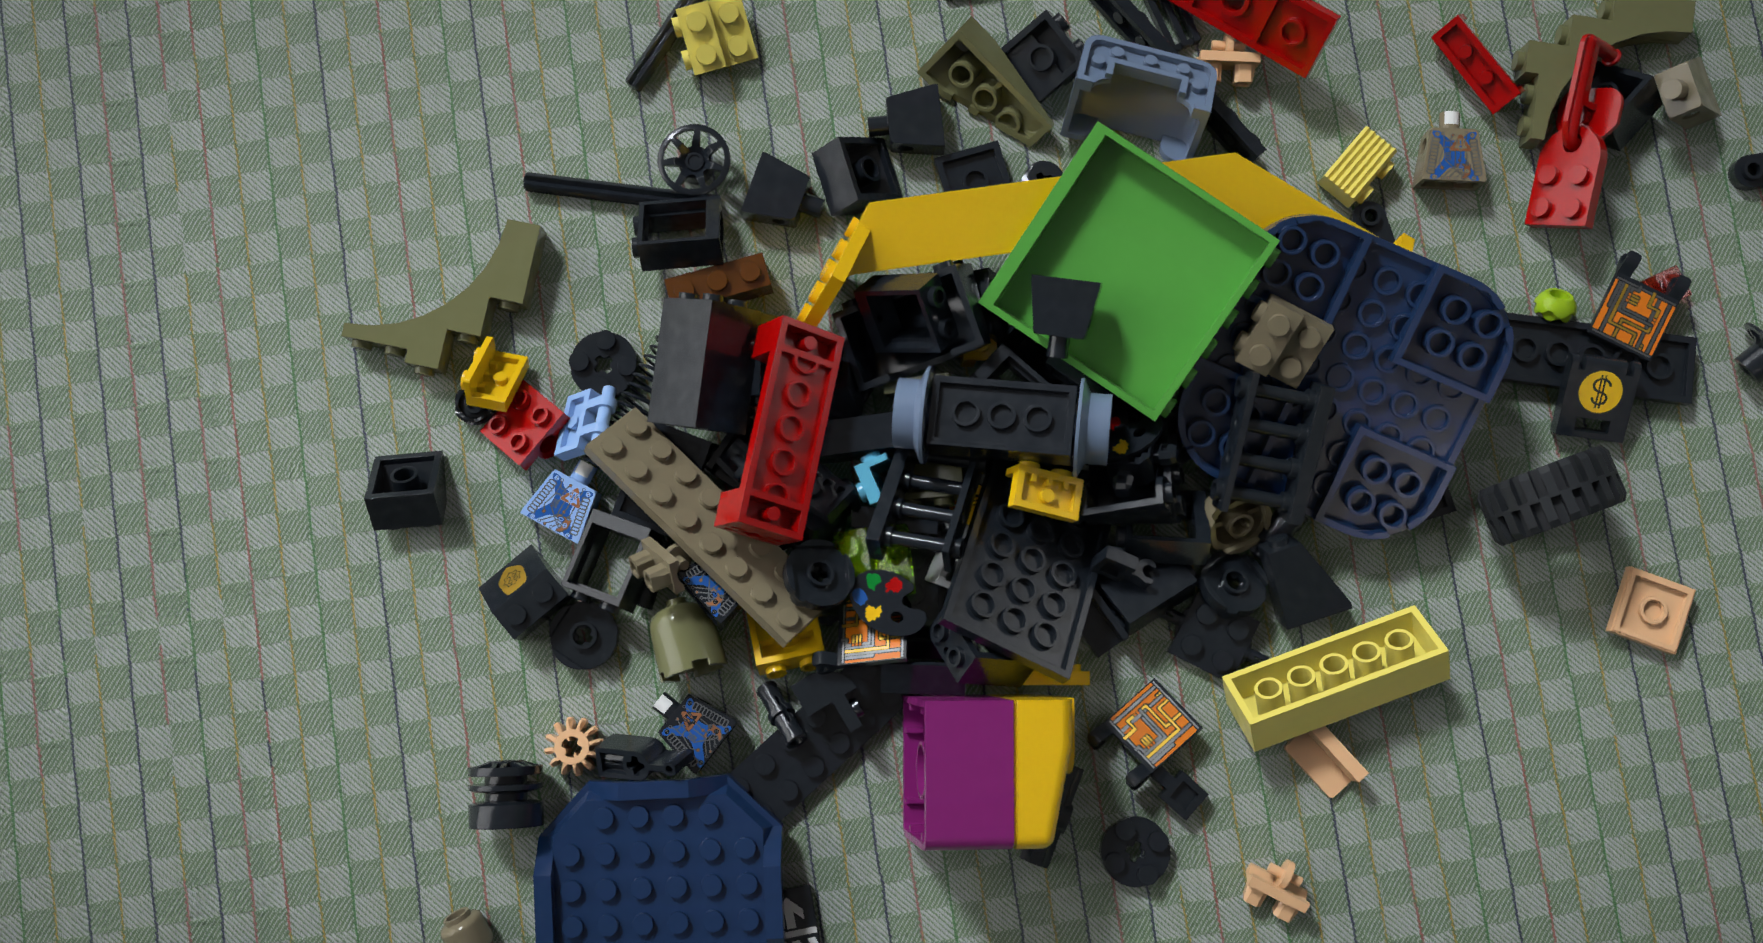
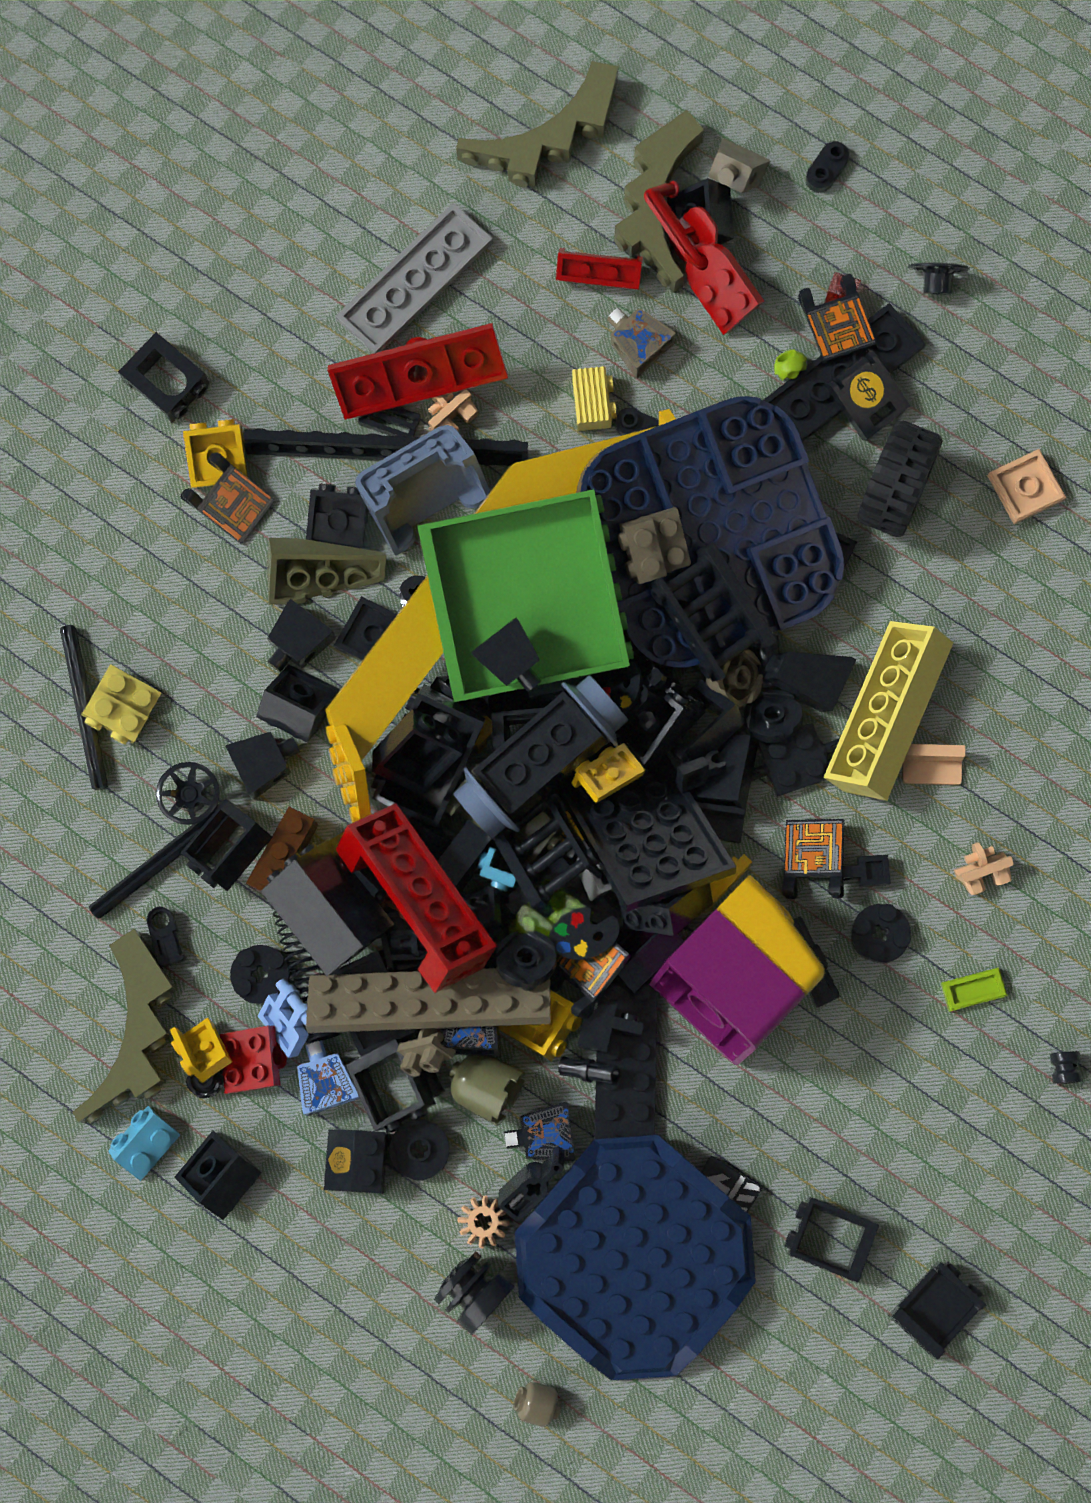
camera: 40 degrees left, 5 degrees down
(377, 404) = (143, 1142): none -> medium azure bracket
(558, 260) = (165, 939): none -> black piece

